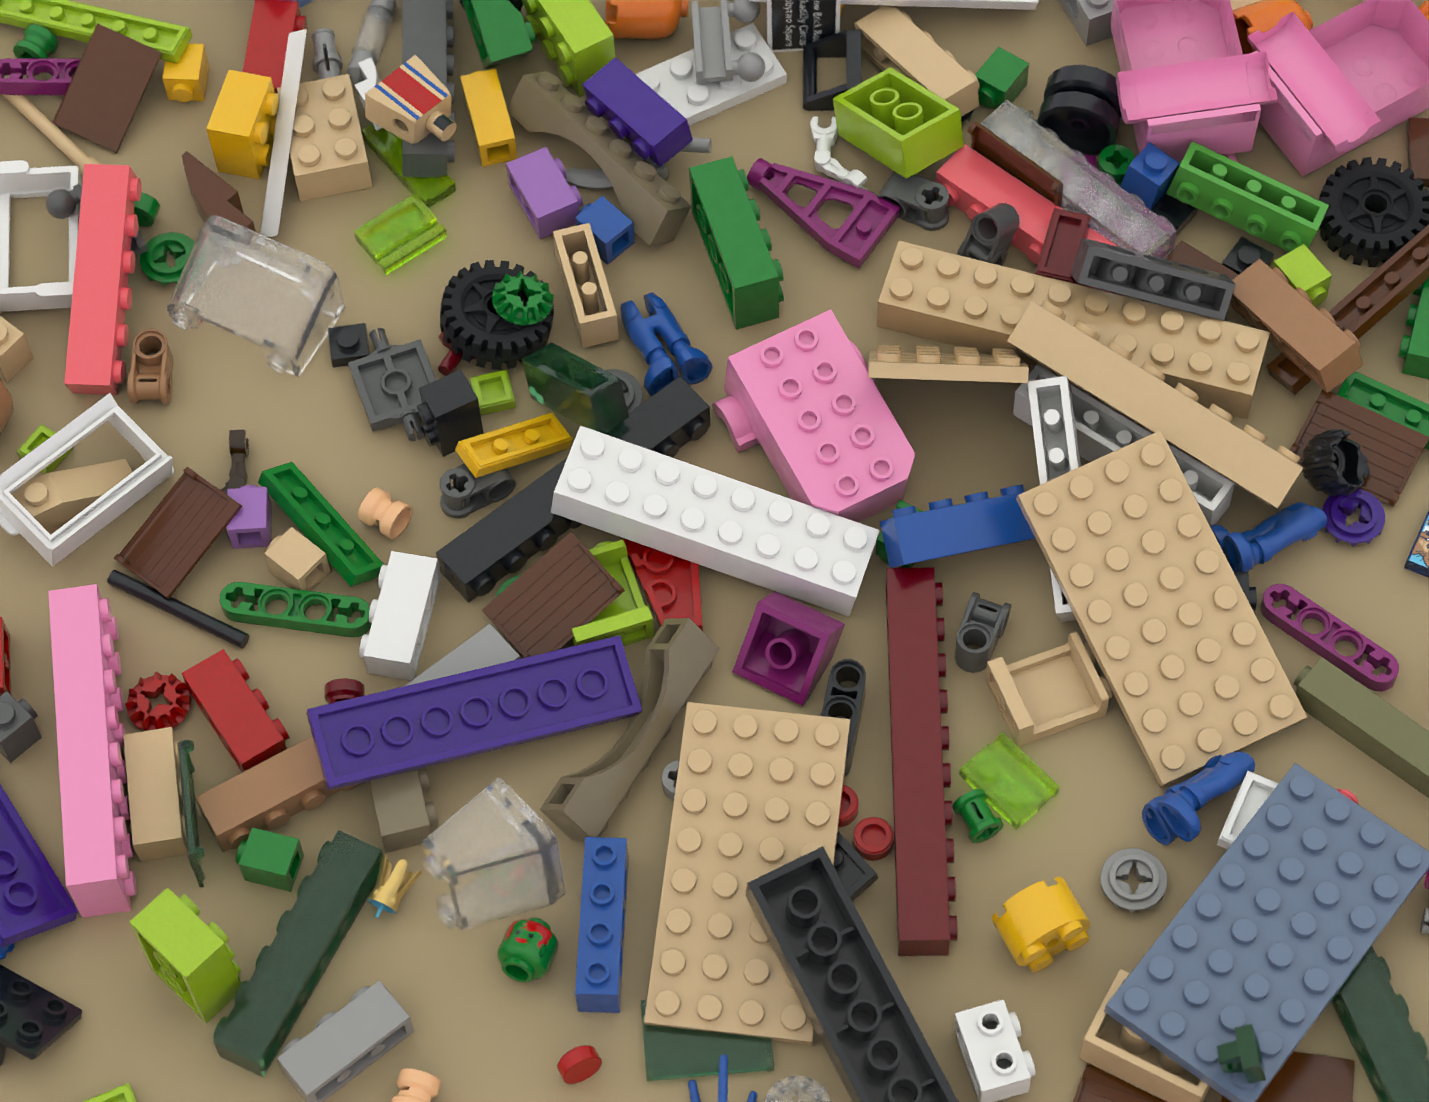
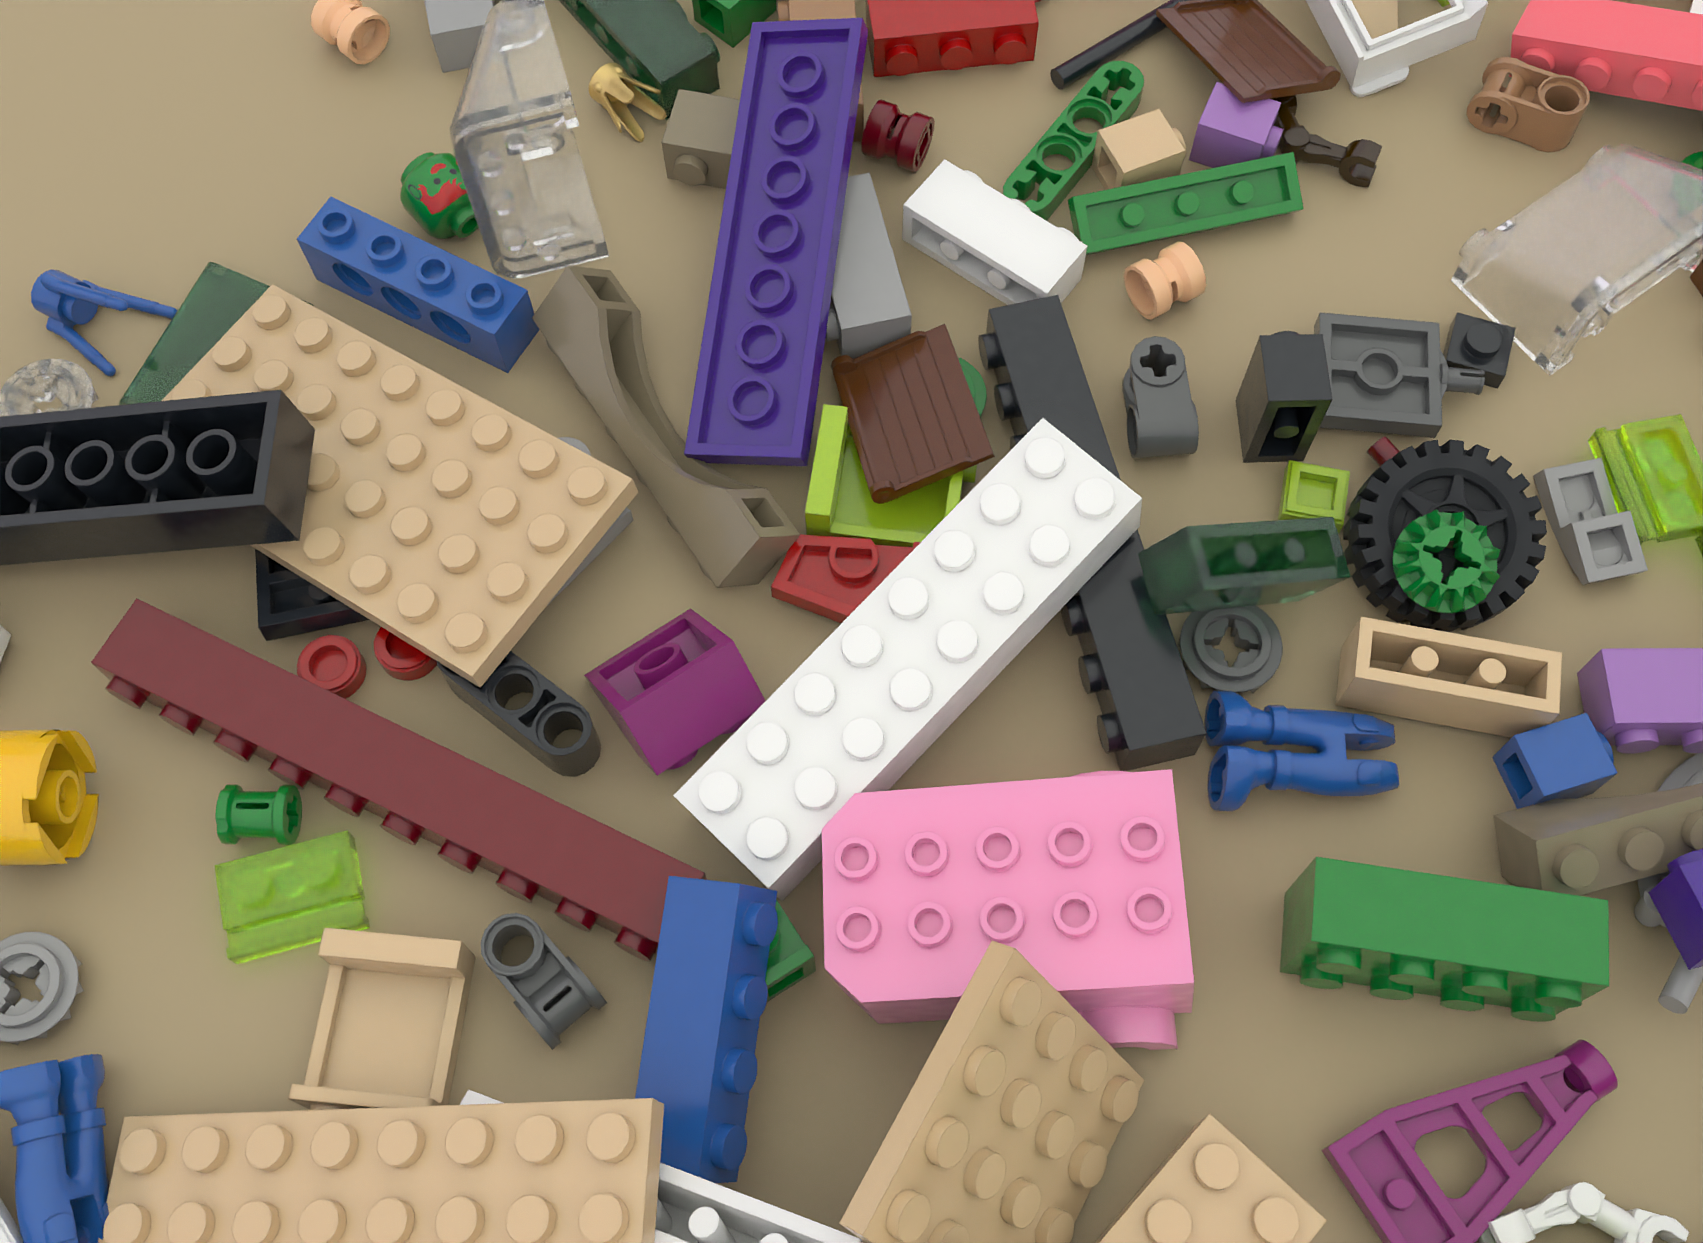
camera: 115 degrees right, 5 degrees up
(446, 256) = (1586, 522): none -> light grey slope
(513, 445) = (1192, 449): yellow tile -> none
(579, 1064) = (269, 195): red tile -> none

